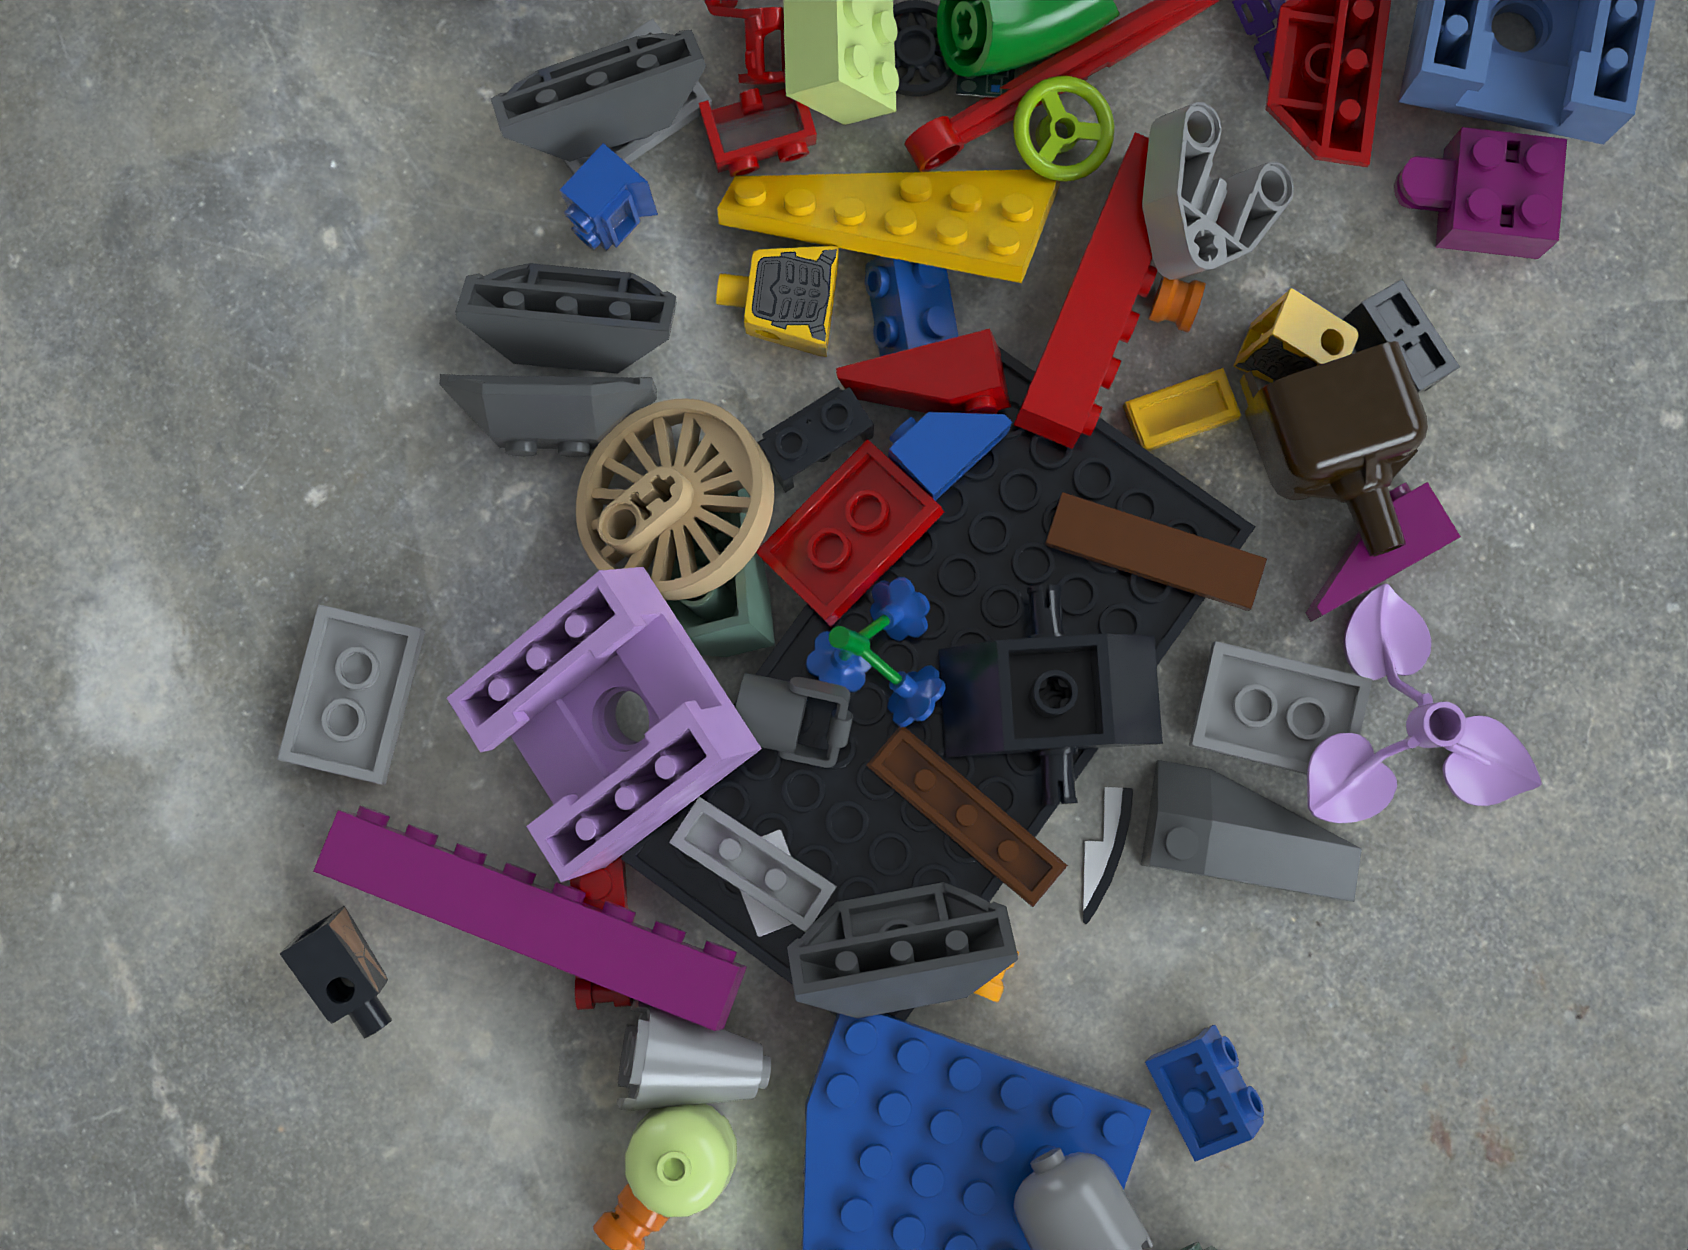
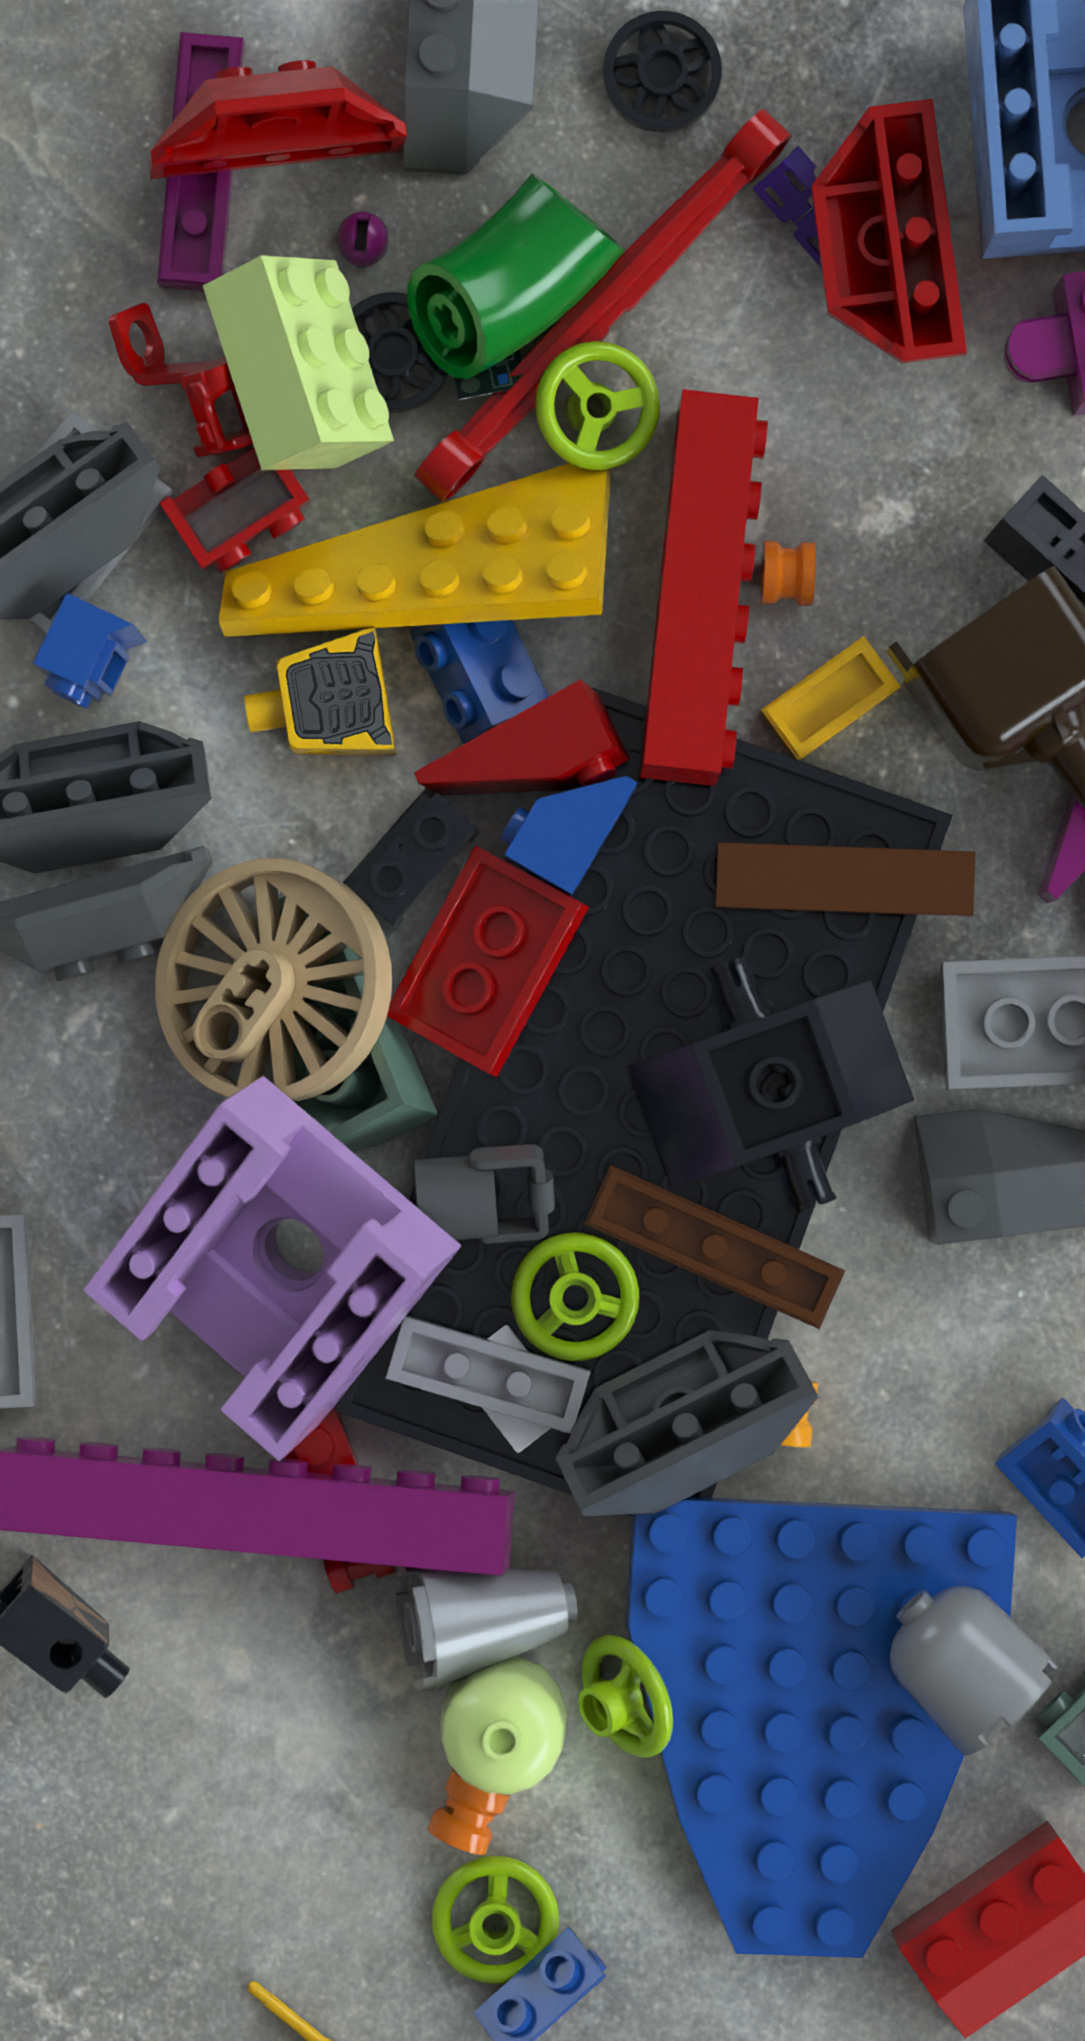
camera: 20 degrees left, 5 degrees up
(778, 1168) = (616, 1705): none -> lime piece
(806, 842) = (622, 1309): none -> lime piece
(845, 655) = (523, 1106): blue plant -> none
(1103, 857) = (884, 1245): sticker -> none
(1197, 219) = (783, 476): light grey connector -> none
(1293, 338) = (939, 587): yellow torso -> none

